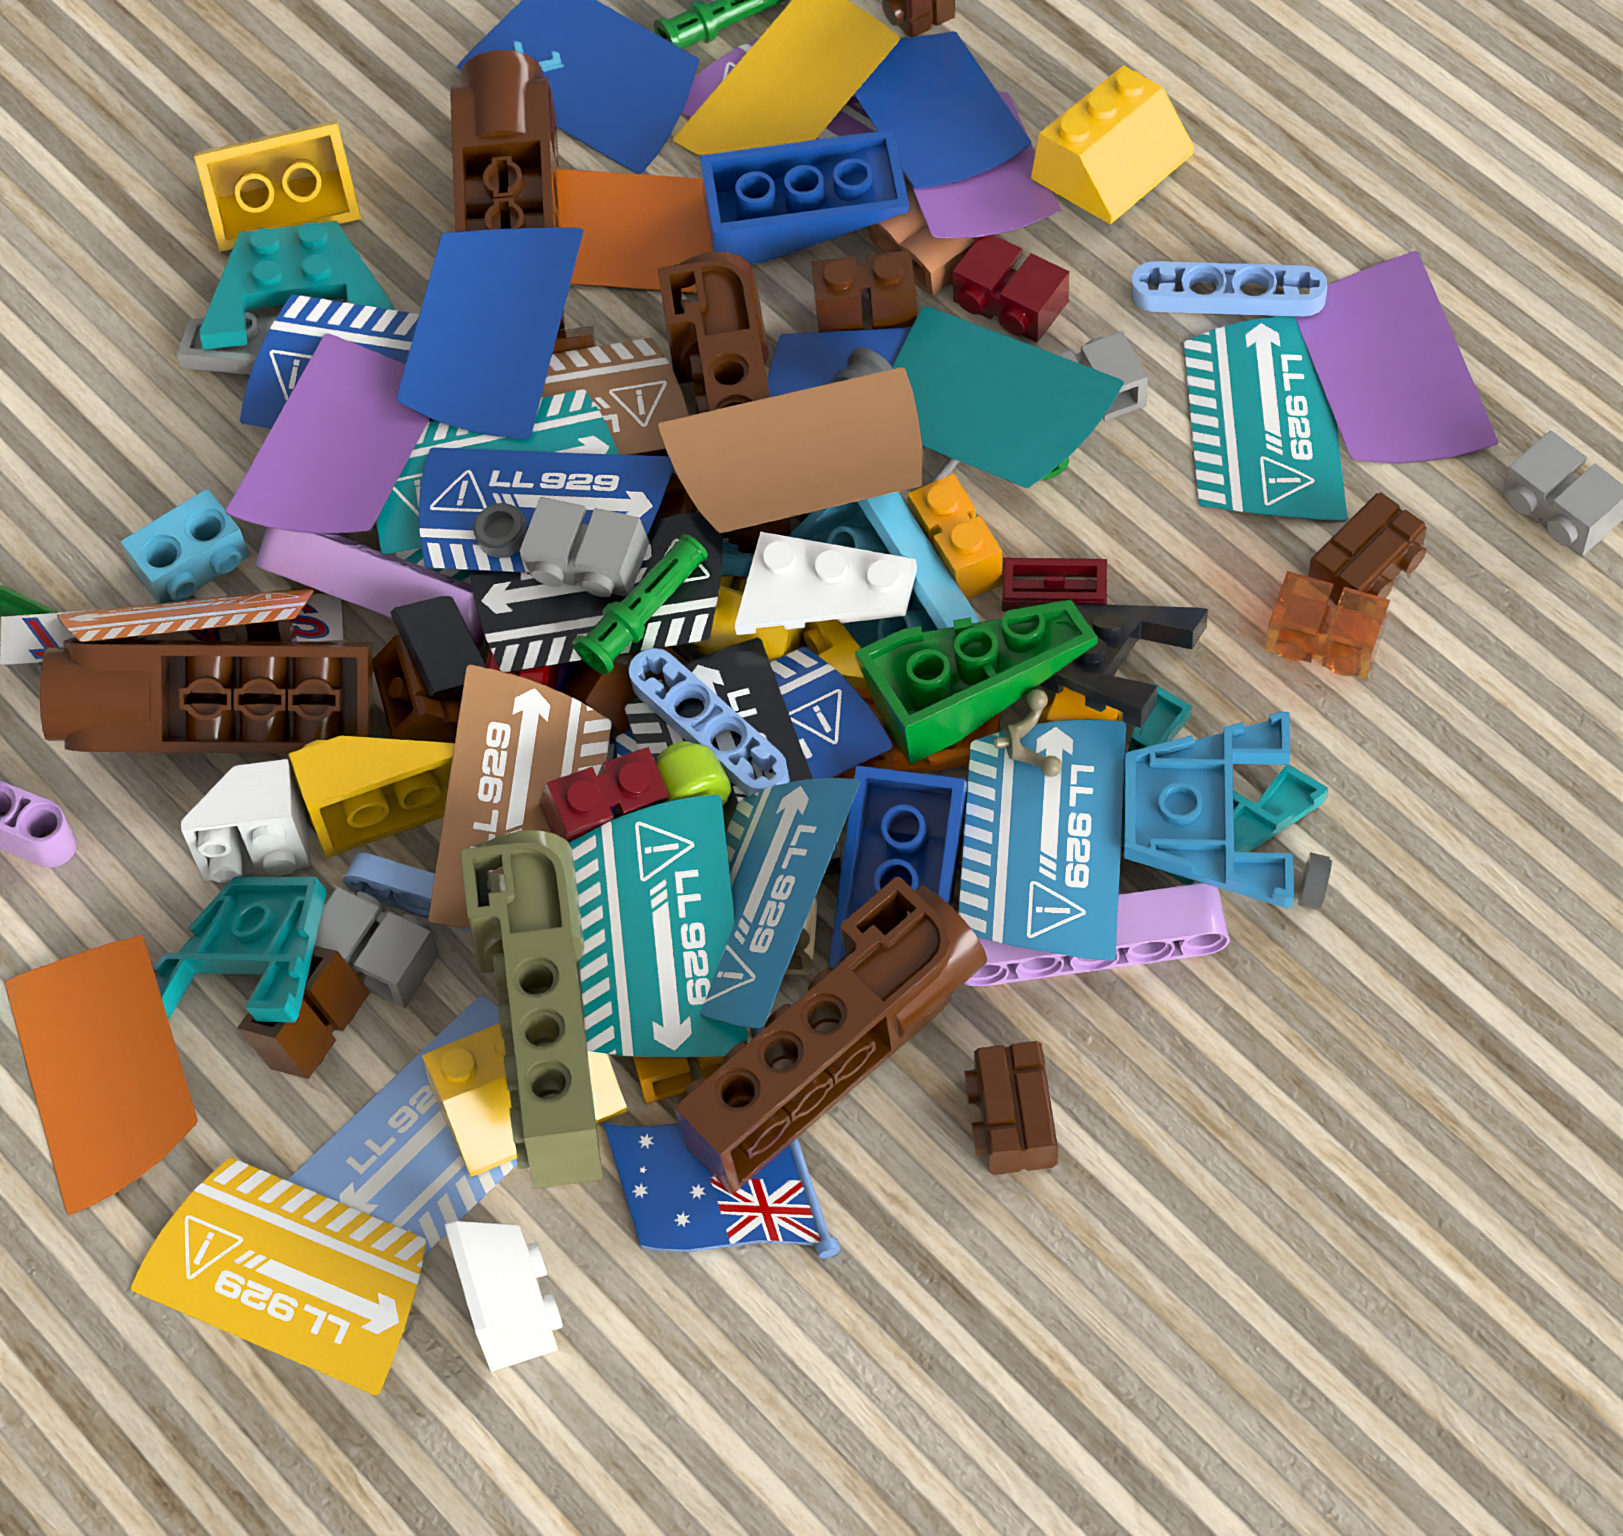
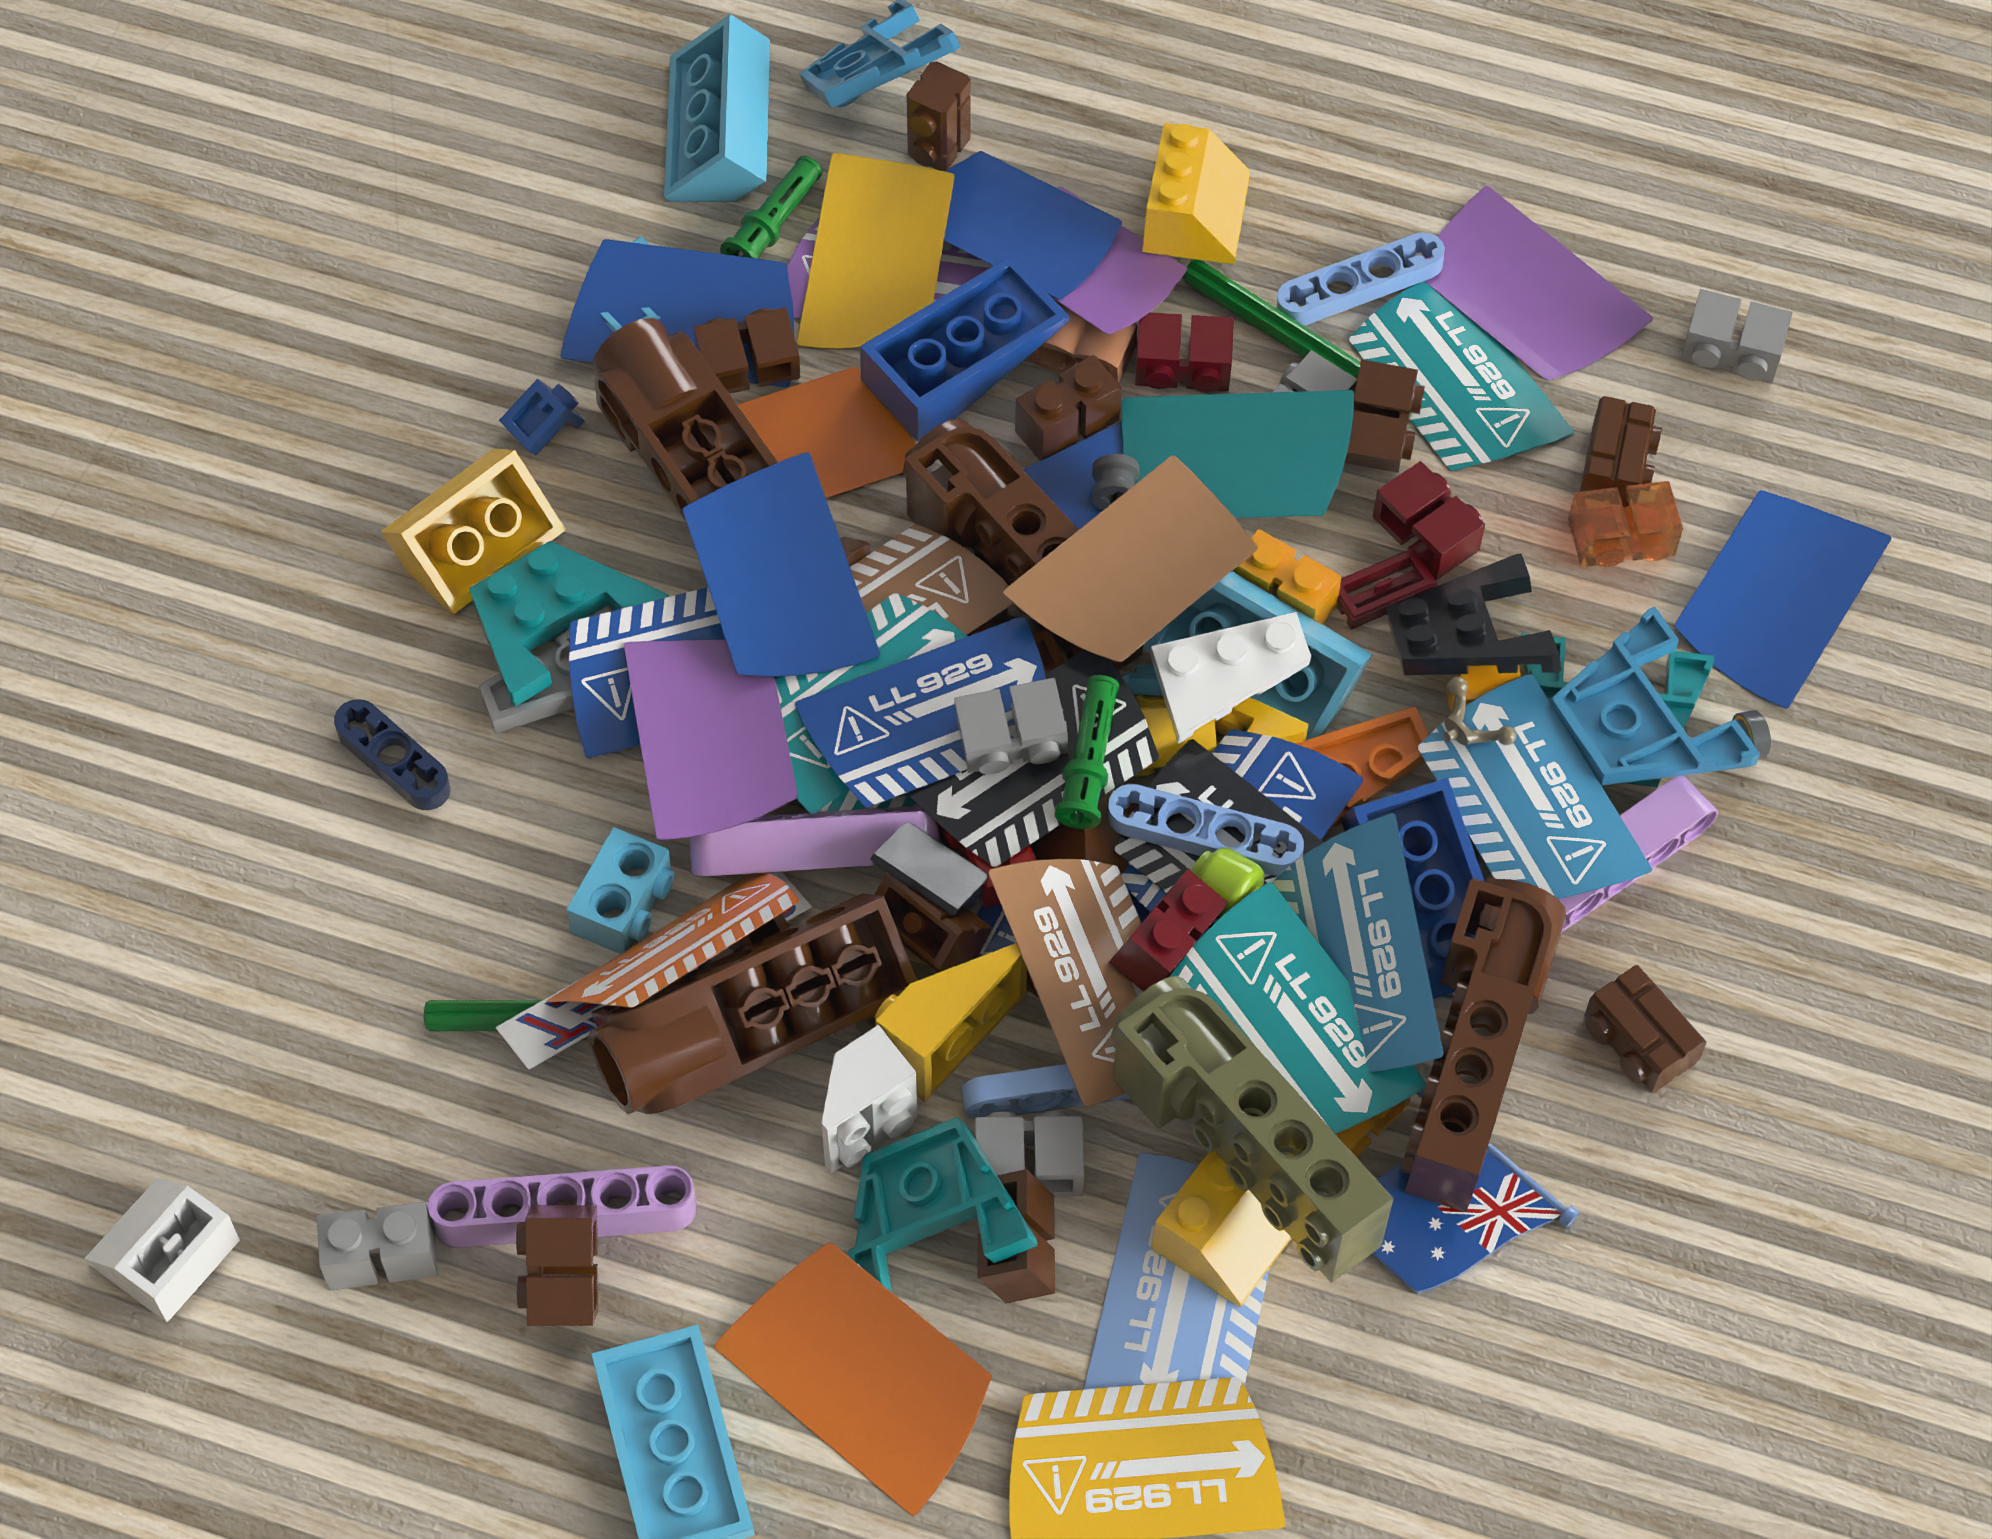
camera: 35 degrees left, 0 degrees up
(80, 366) = (399, 774): none -> dark blue beam
(401, 108) = (540, 415): none -> blue bracket
(500, 530) = (919, 744): dark grey tile -> none
(504, 1292) = (1345, 1386): white slope -> none
(598, 116) = (769, 343): none -> reddish brown piece
(956, 678) = (1381, 697): green wedge -> none
(1133, 323) = (1265, 316): none -> green axle
(1136, 532) = (1422, 507): none -> dark red piece
(1164, 399) = (1381, 415): none -> reddish brown piece
(1447, 760) = (1779, 594): none -> blue sticker

